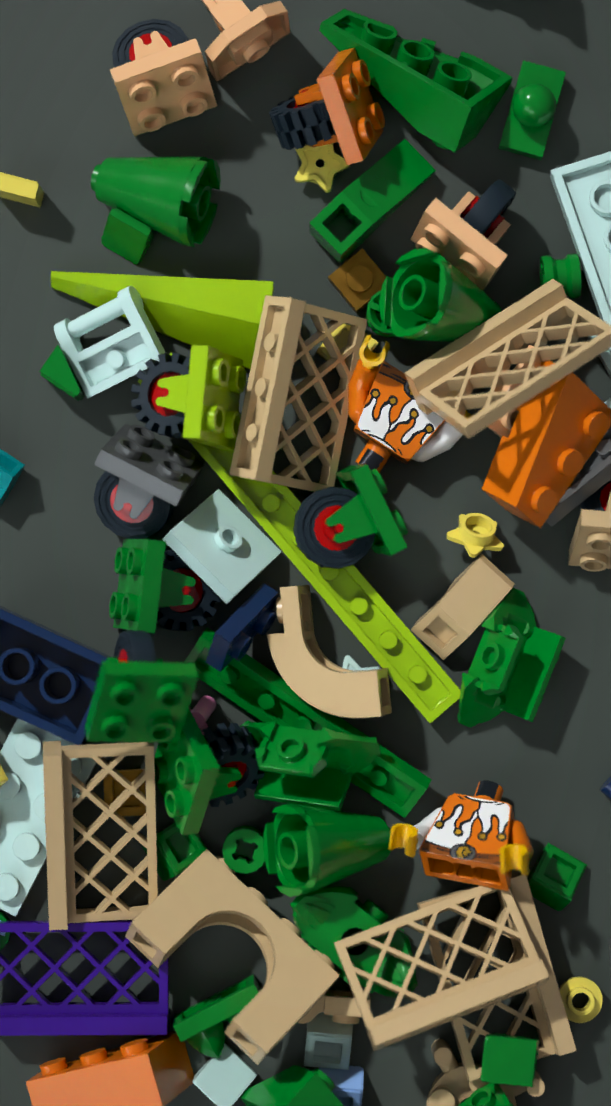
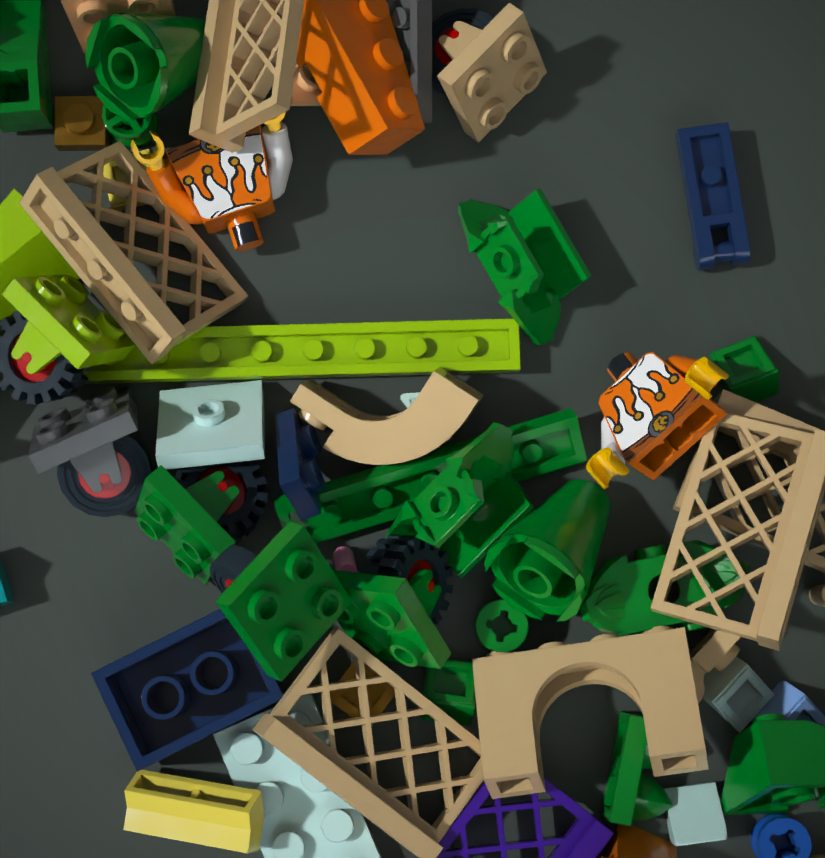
camera: 55 degrees left, 5 degrees down
(342, 524) = (280, 289): plate -> none
(463, 607) = (440, 259): tan slope -> none
(476, 534) = (385, 196): light yellow plate -> none

